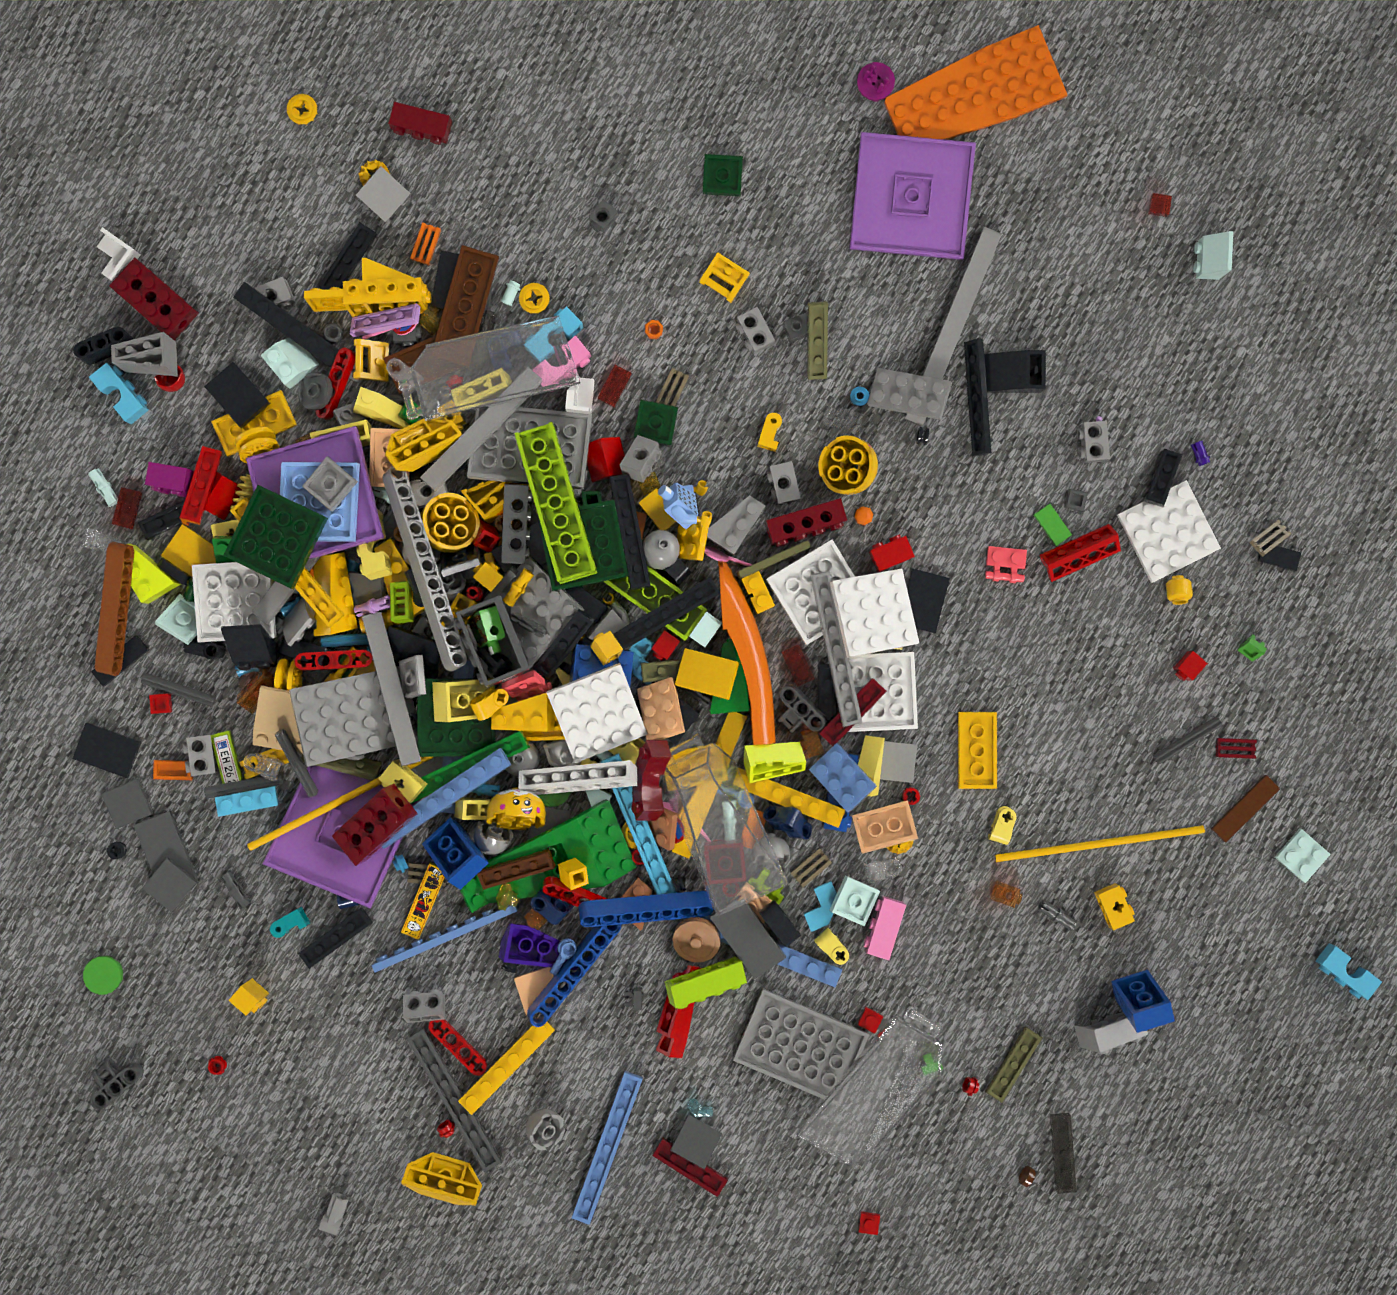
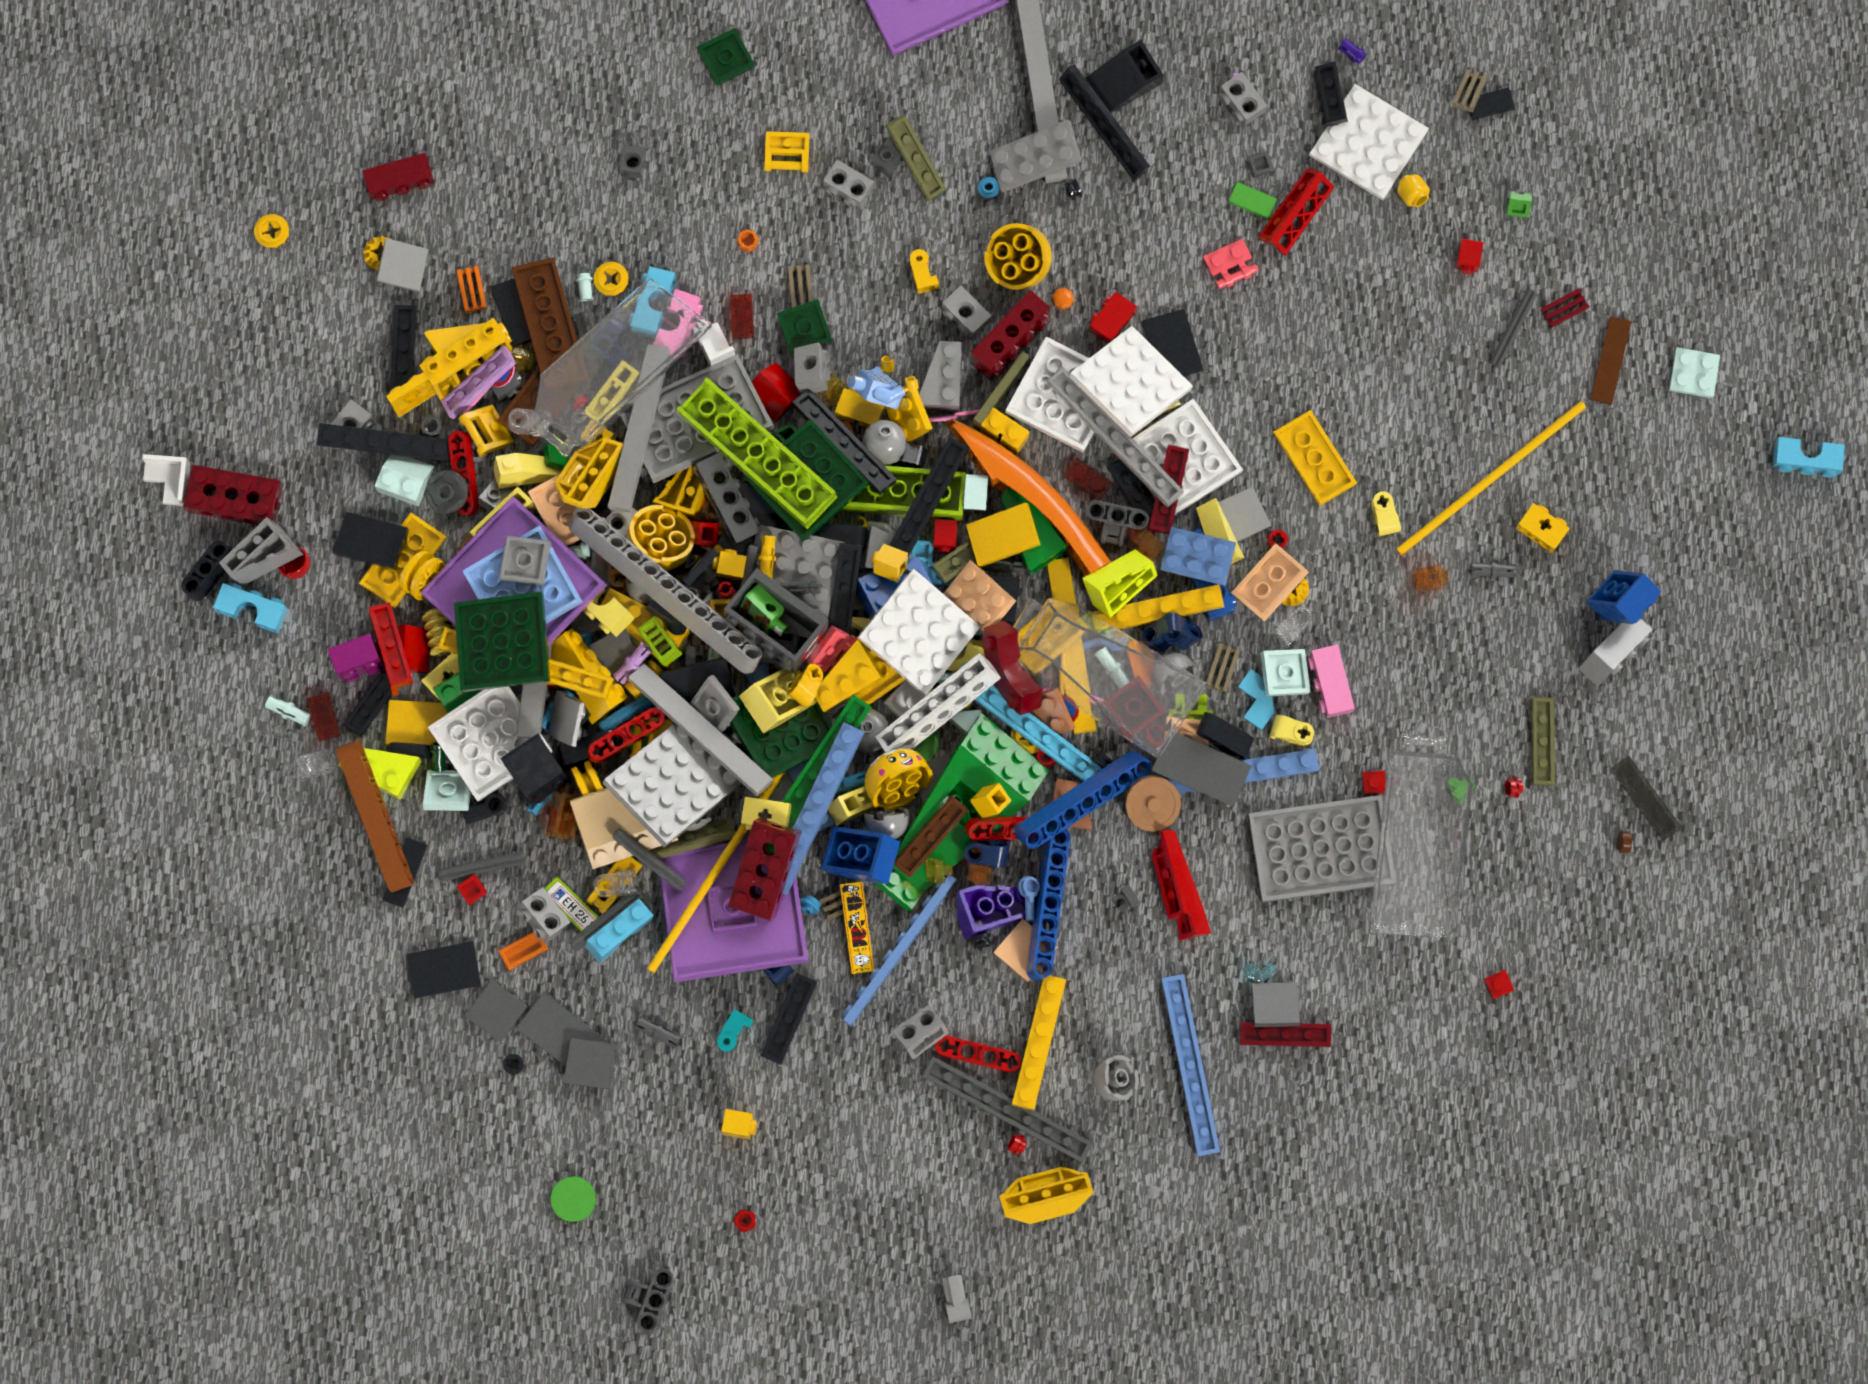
camera: 30 degrees left, 10 degrees down
(705, 982) = (1186, 836): lime brick -> none

